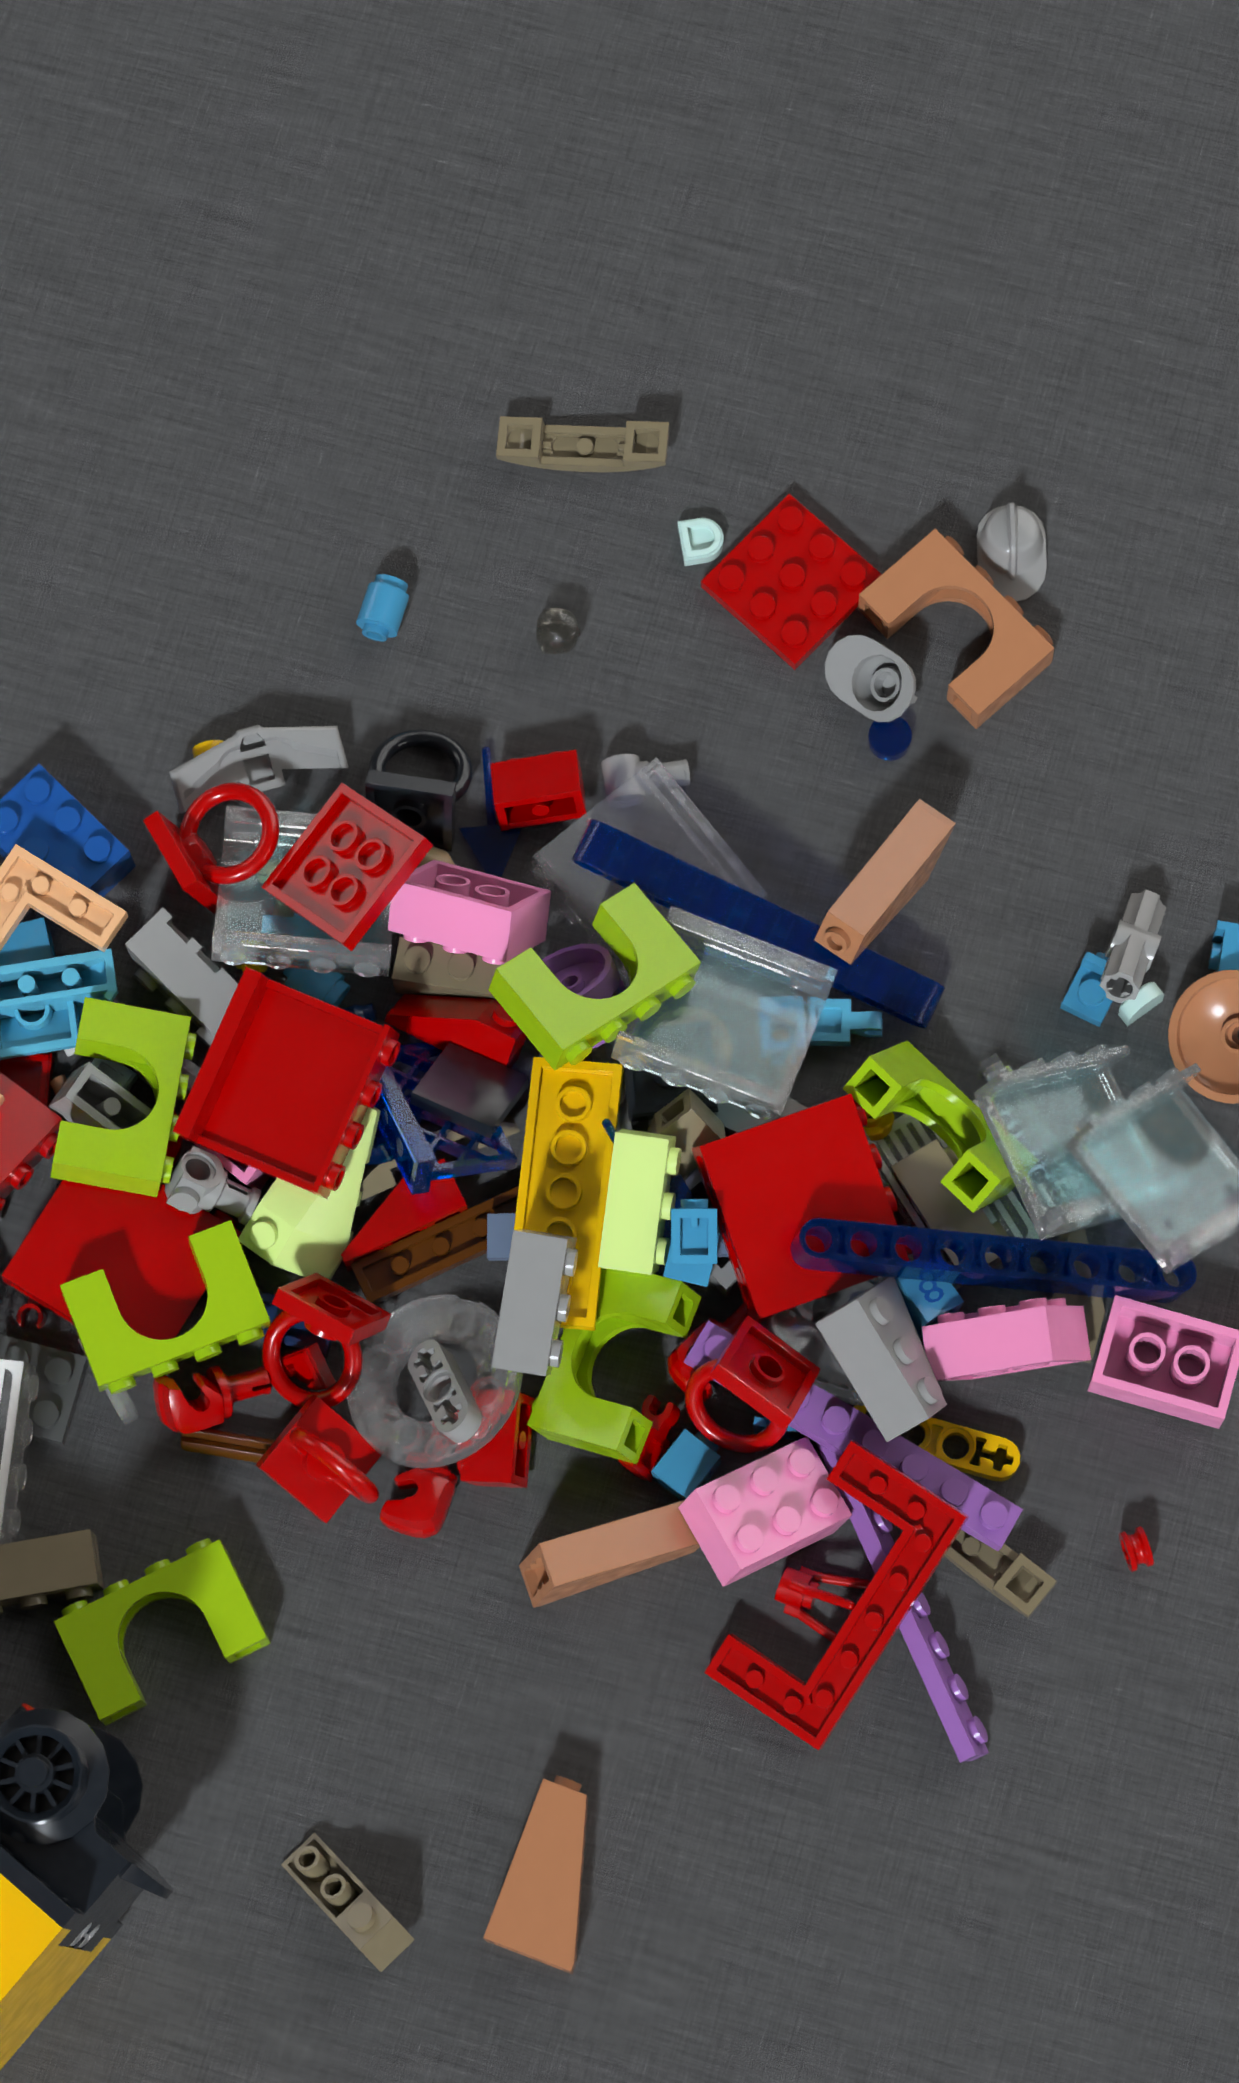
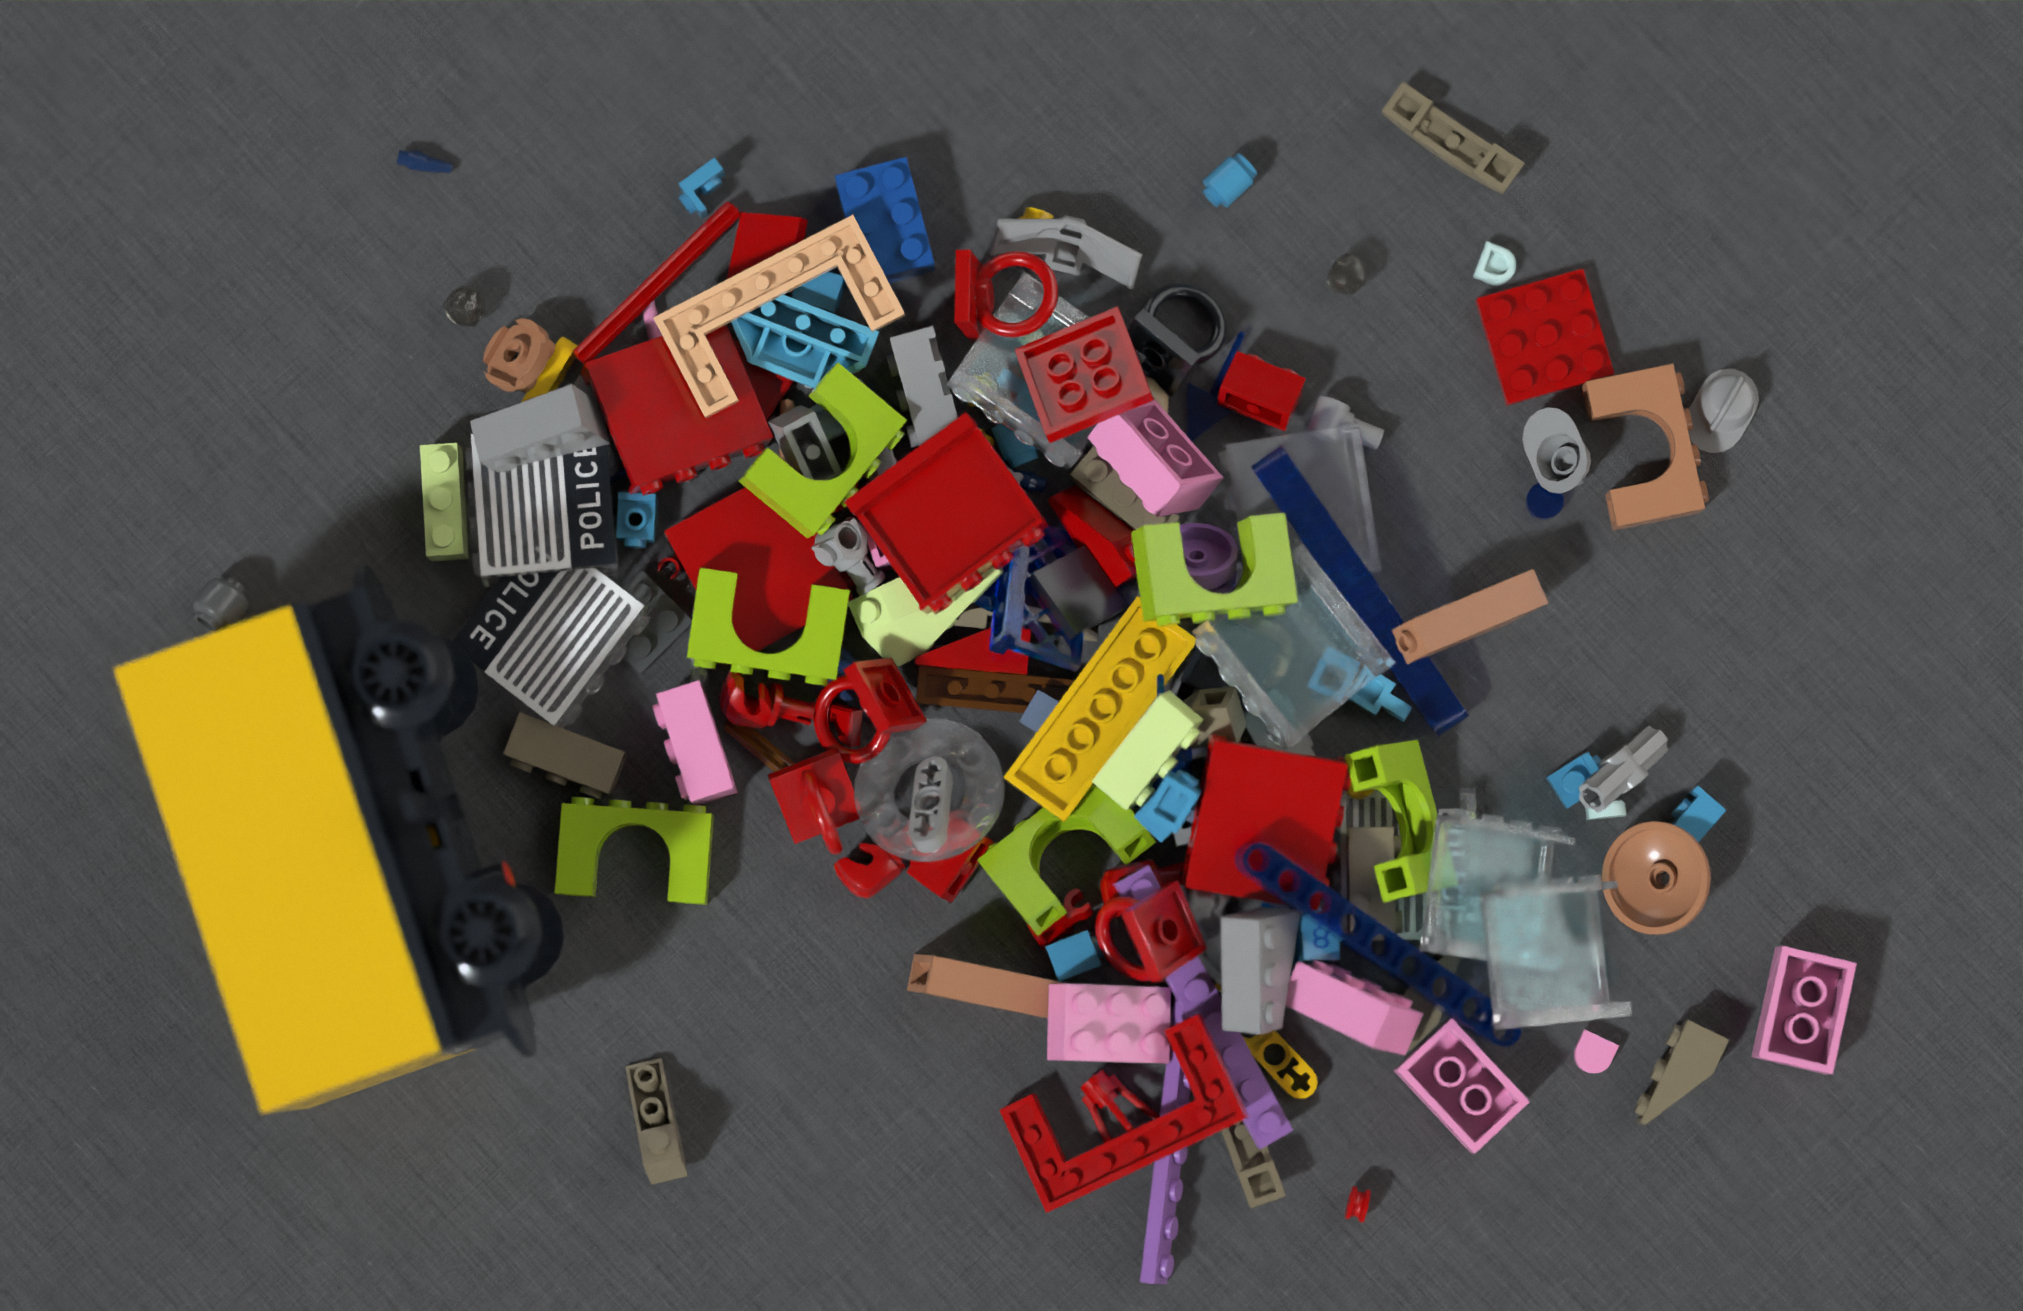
camera: 25 degrees right, 10 degrees up
(160, 1477) = (694, 744): none -> bright pink brick
(534, 1302) = (1031, 781): light grey wedge -> none
(543, 1887) = (797, 1194): nougat slope -> none

